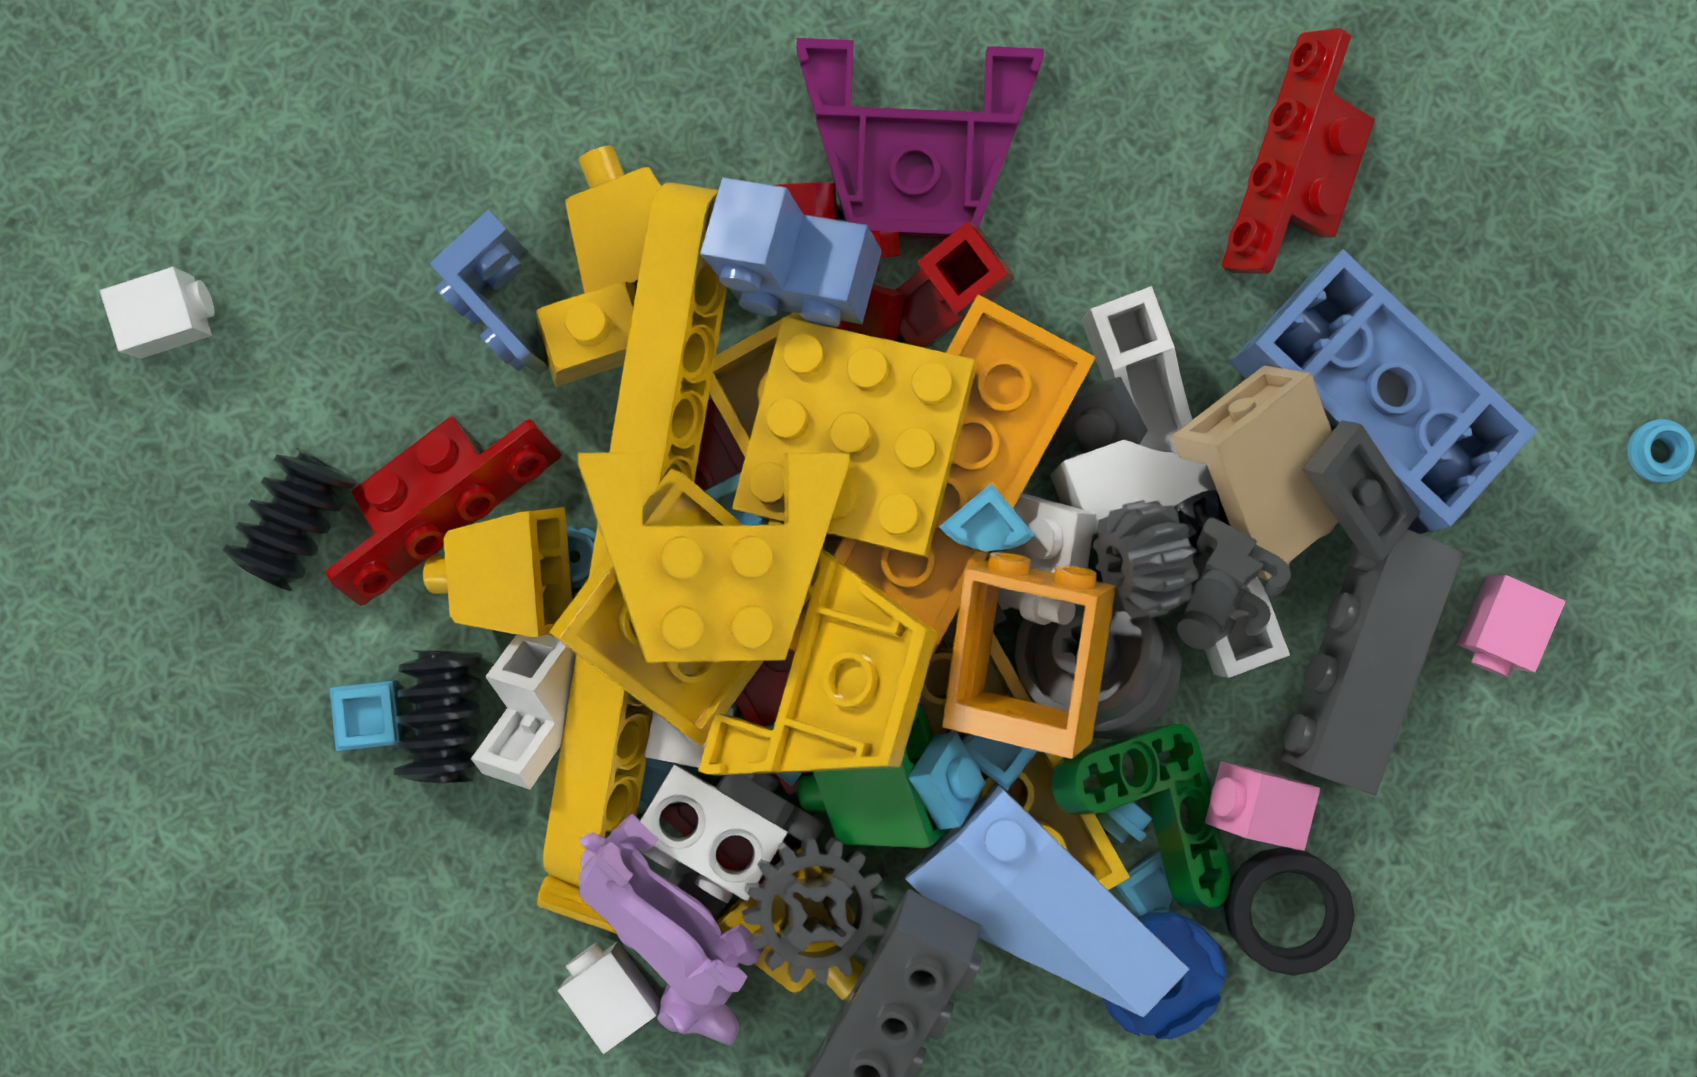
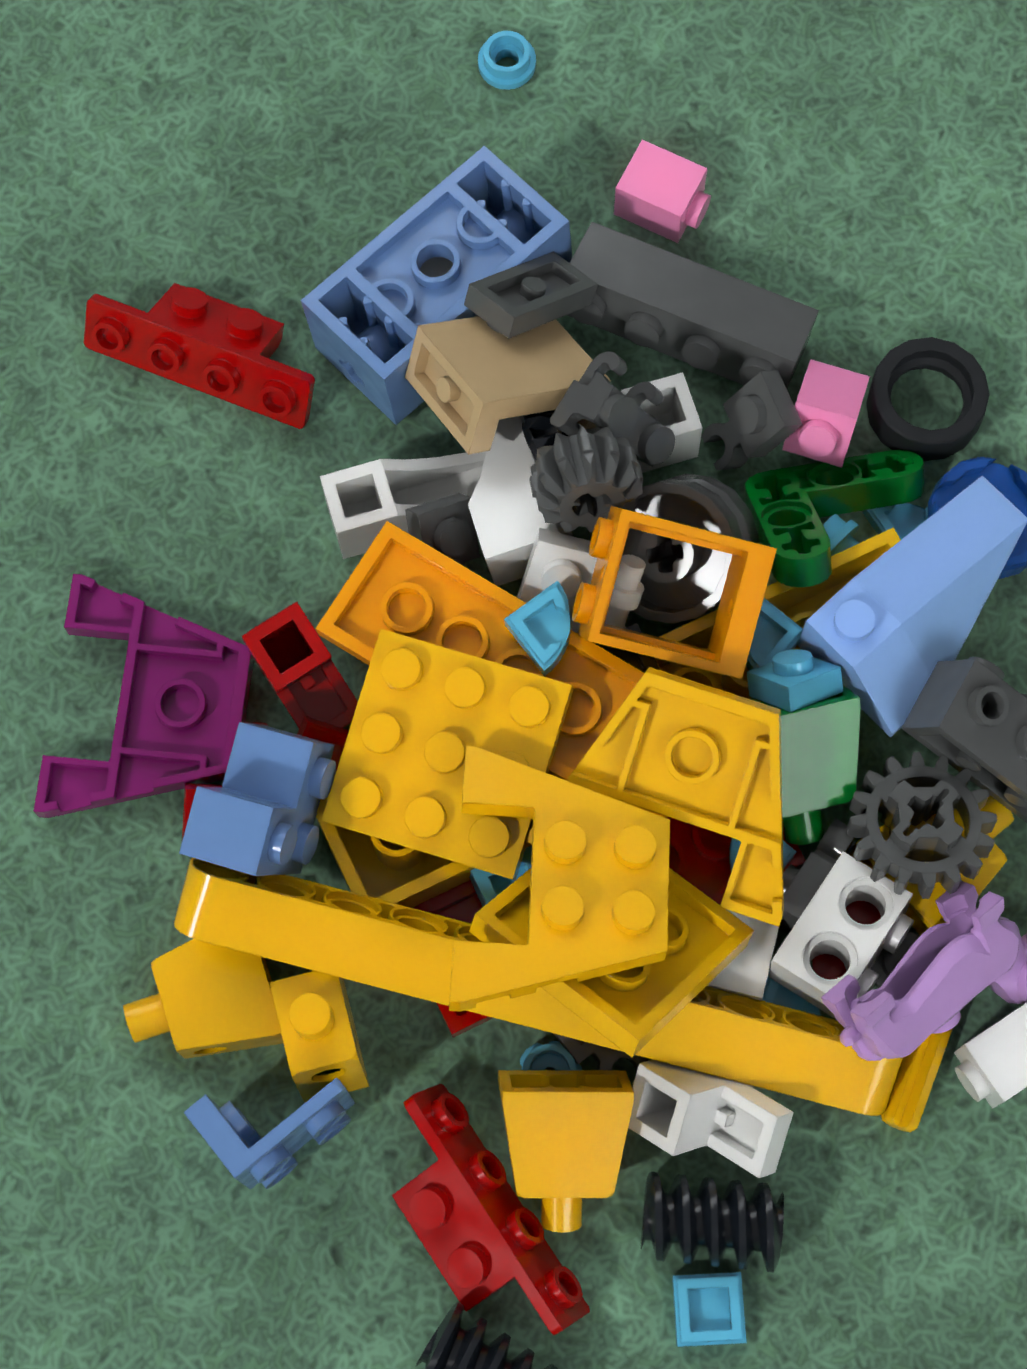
camera: 85 degrees left, 15 degrees down
(1246, 733) = (758, 421): none -> dark grey plate

